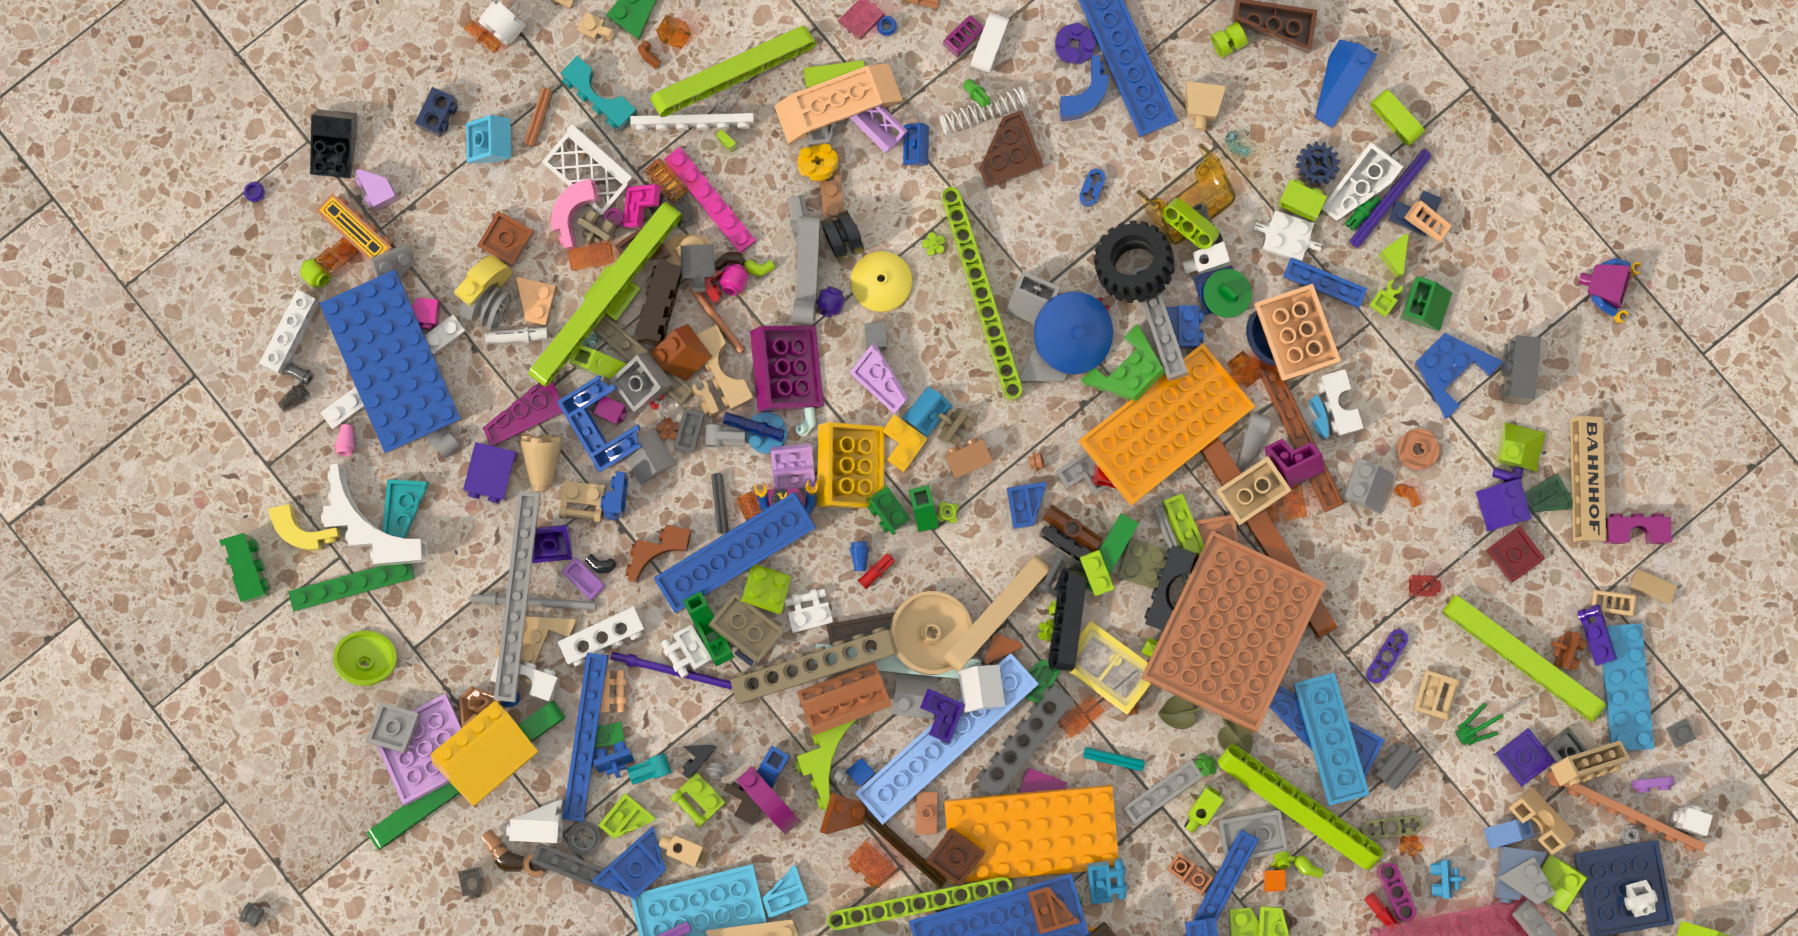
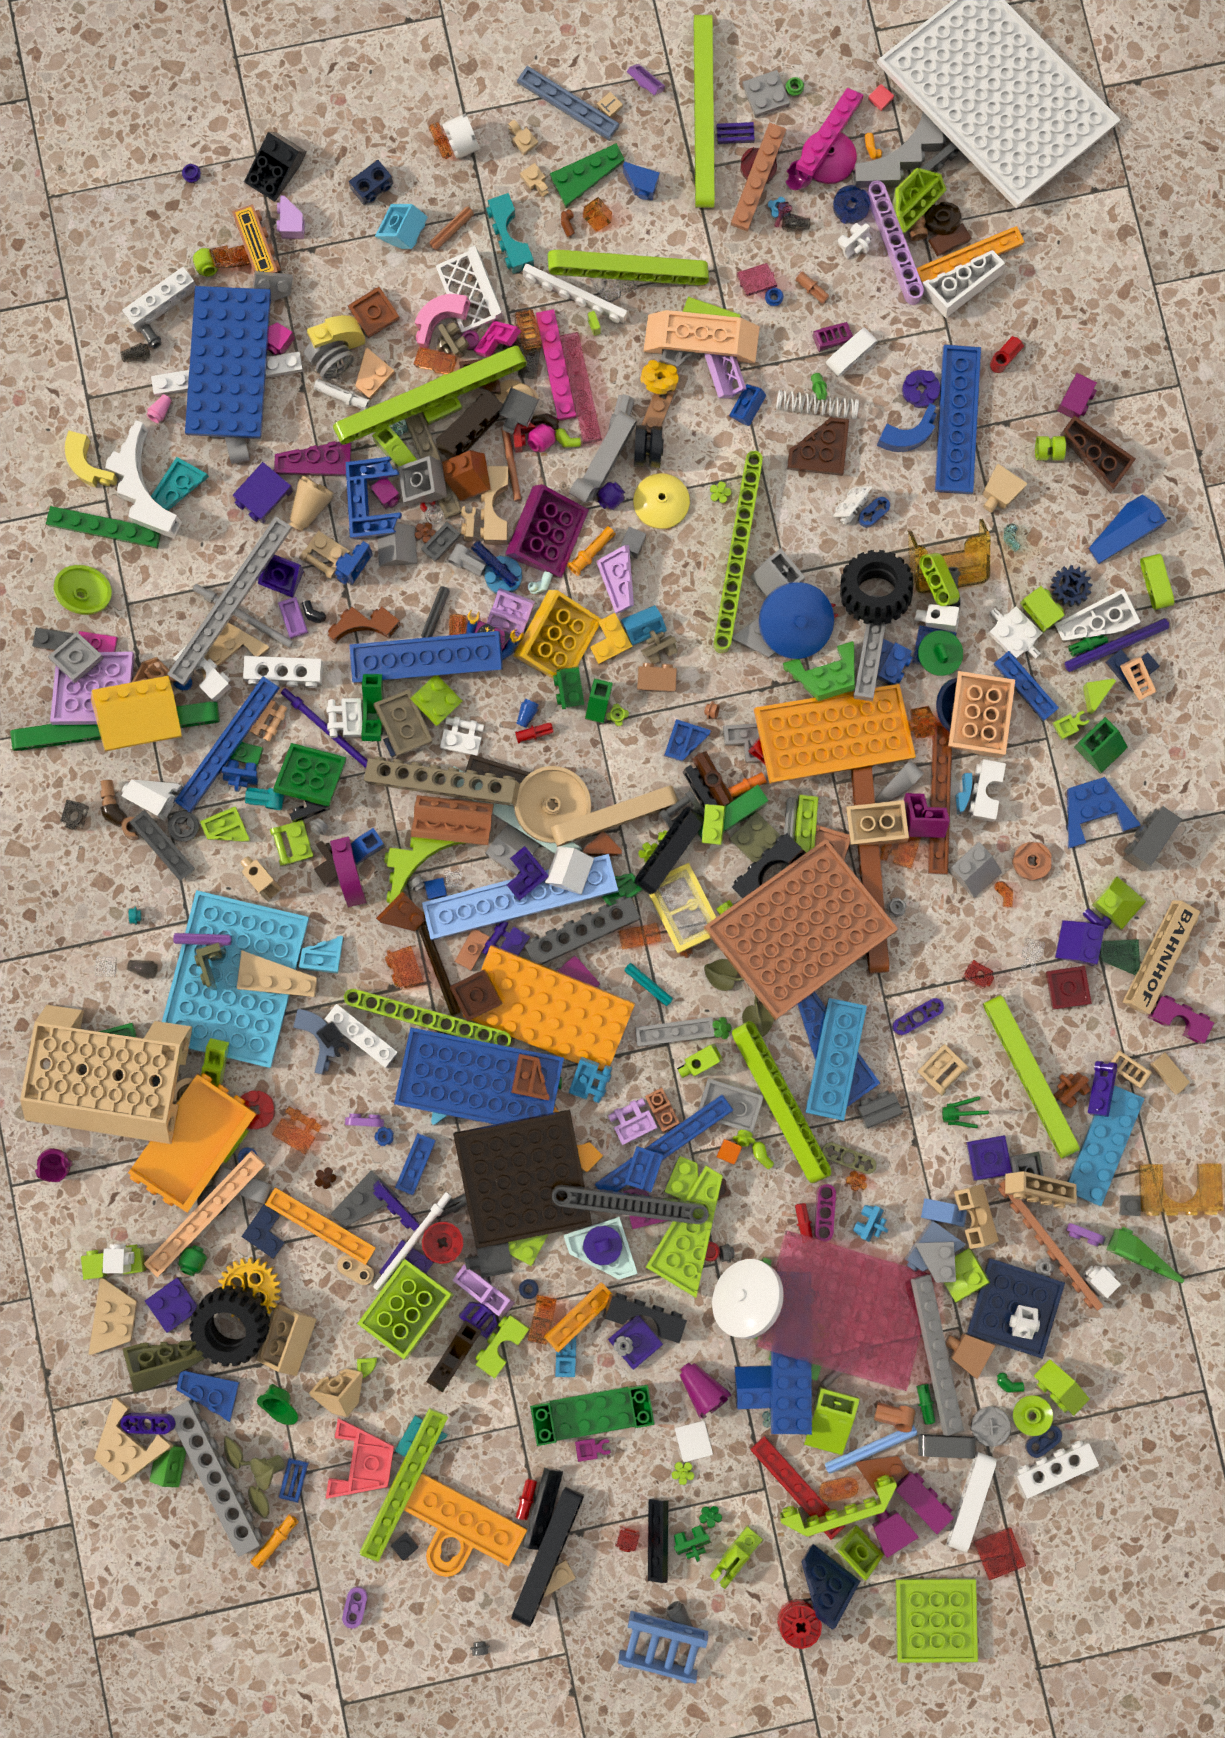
camera: 20 degrees right, 0 degrees up
(246, 567) = (26, 468): green wedge -> none
(357, 721) = (49, 639): none -> dark grey plate
(407, 700) = (100, 642): none -> dark pink plate
(634, 868) = (210, 870): blue wing -> none
(682, 724) = (309, 774): none -> green plate
(746, 210) = (580, 388): none -> clear pink plate
(837, 374) = (585, 557): none -> light orange pin
(963, 786) = (514, 940): none -> dark purple plate
(1067, 189) = (855, 500): none -> white hinge
(1108, 516) = (746, 785): none -> orange pin
(1172, 904) = (634, 1127): none -> lavender plate
(1312, 555) = (900, 903): none -> light grey plate
(1702, 774) = (1133, 1249): none -> bright green wedge
(1749, 690) = (1207, 1196): none -> clear yellow arch

